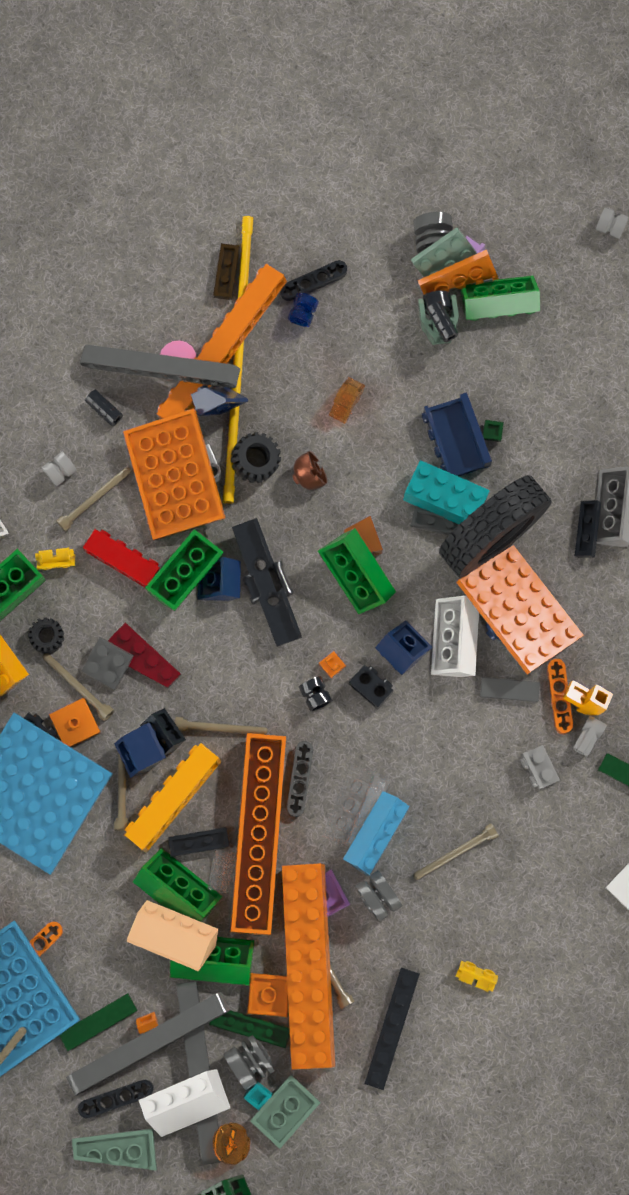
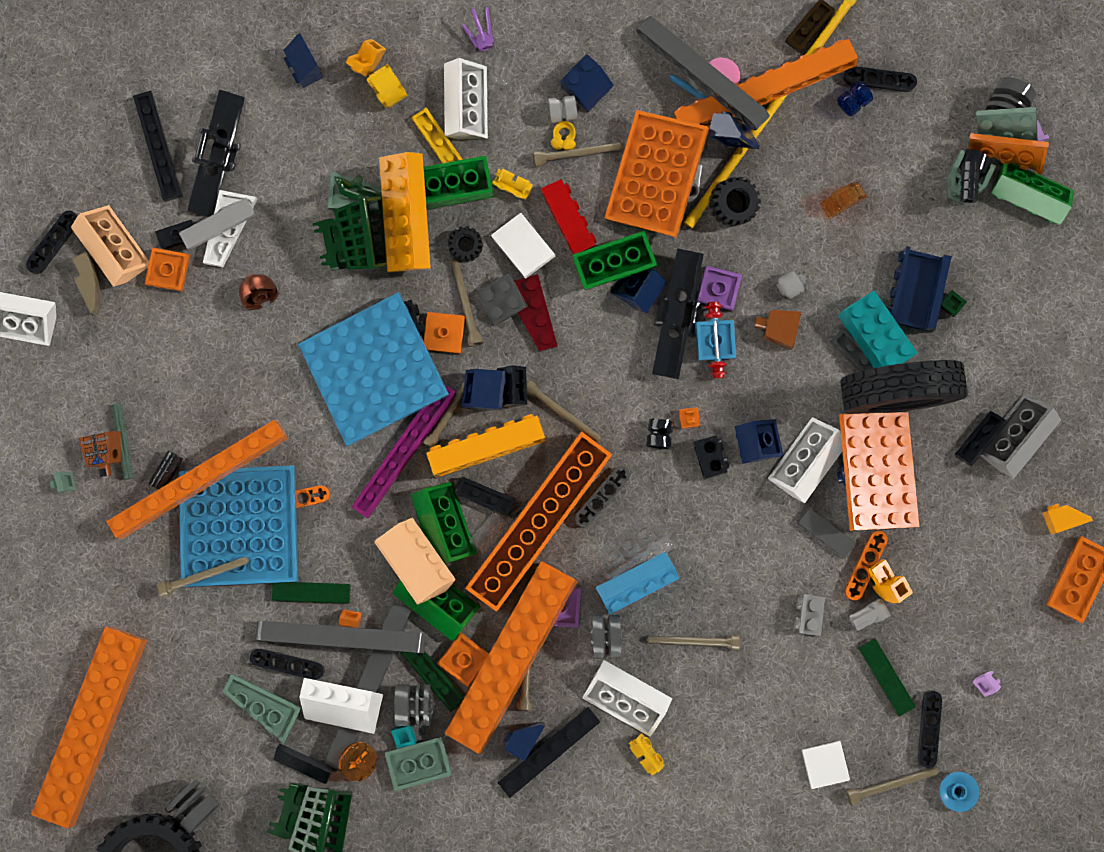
camera: 30 degrees right, 5 degrees up
(66, 434) = (586, 82): none -> dark blue slope
(73, 500) = (569, 143): none -> yellow piece
(97, 606) = (523, 245): none -> white tile
(103, 407) = (632, 80): black axle -> none
(103, 853) = (400, 455): none -> magenta plate
(155, 385) = (687, 87): none -> dark azure piece
(184, 1177) = (302, 763): none -> black tile
(288, 539) = (719, 286): none -> medium lavender tile
(308, 472) = (771, 242): copper cylinder -> none
(313, 584) = (715, 340): none -> dark azure plate
(347, 498) = (790, 285): none -> light grey head
(357, 571) = (760, 352): green slope -> none
(363, 1031) = (523, 739): none -> dark blue slope
(430, 938) = (627, 698): none -> white slope

